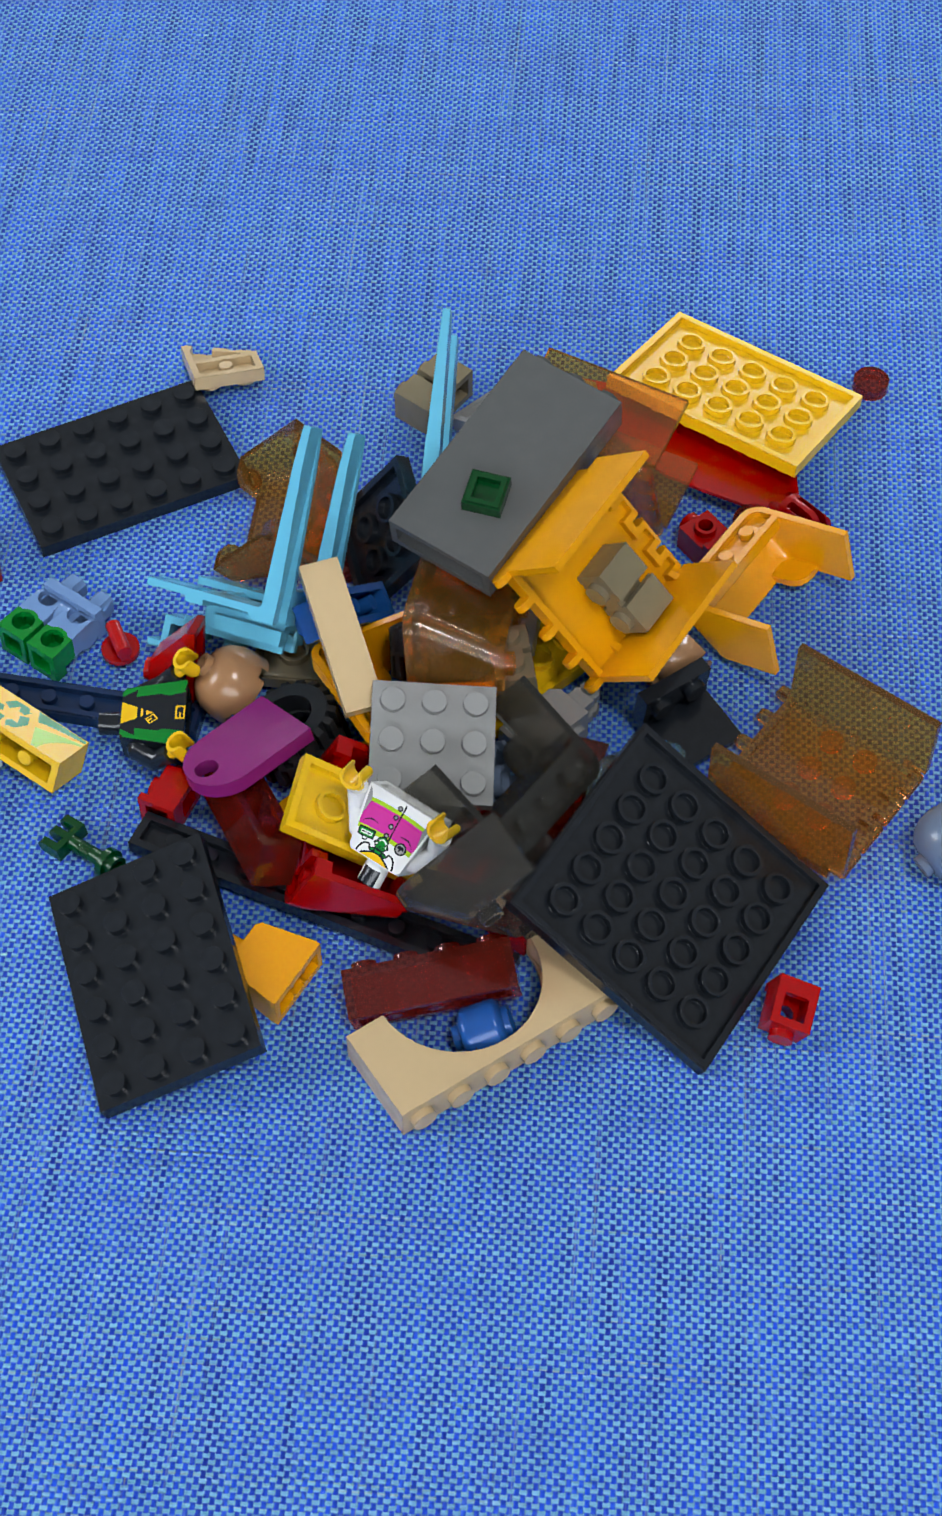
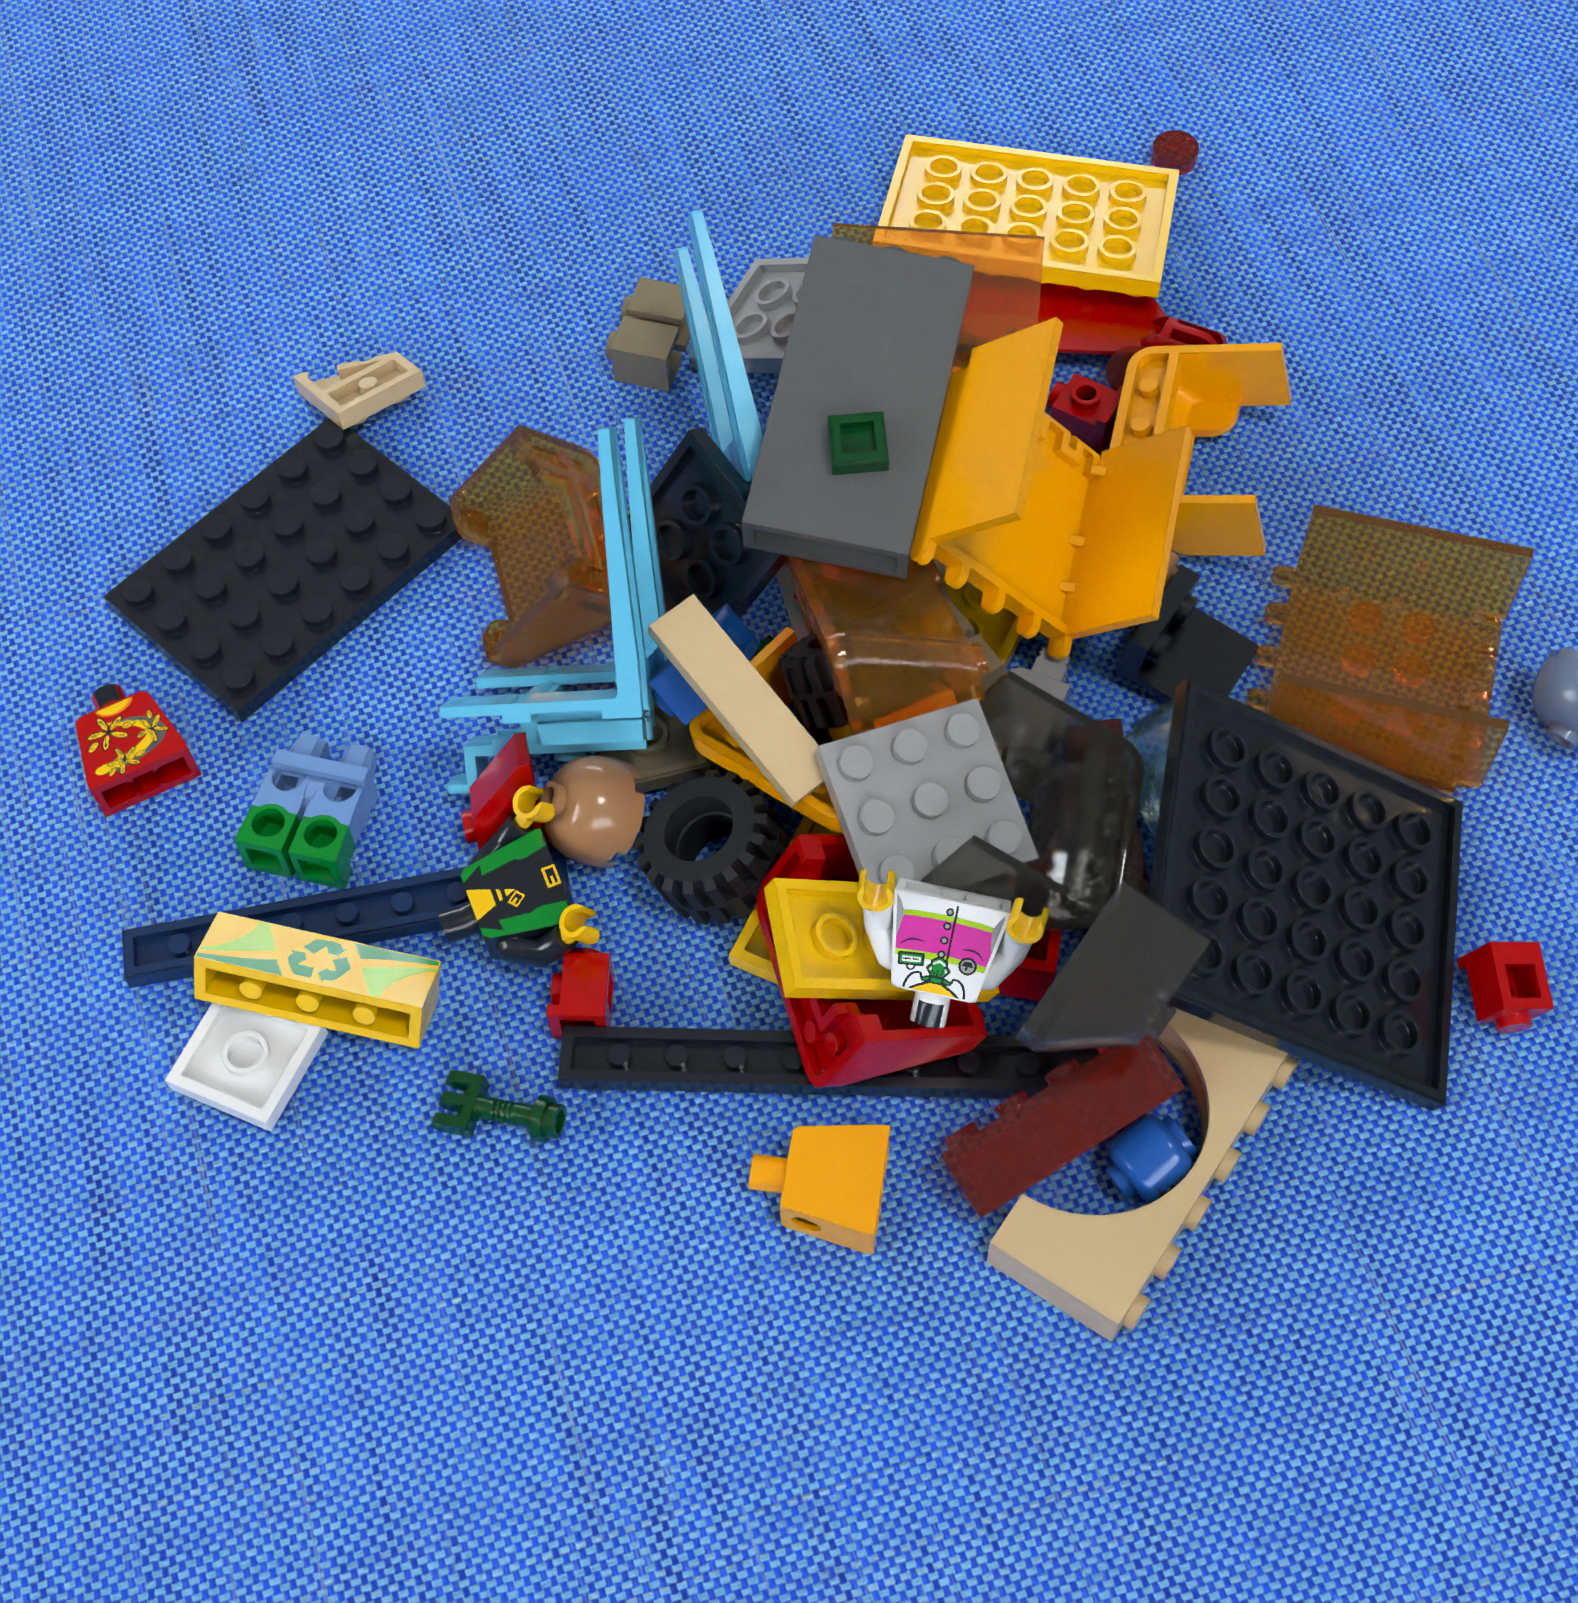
camera: 20 degrees left, 5 degrees up
(119, 647) = (409, 810): red plate -> none
(155, 976) = (690, 1256): black plate -> none
(244, 749) = (671, 897): magenta tile -> none
(252, 829) = (716, 987): clear red brick -> none
(614, 582) = (1061, 522): dark tan piece -> none

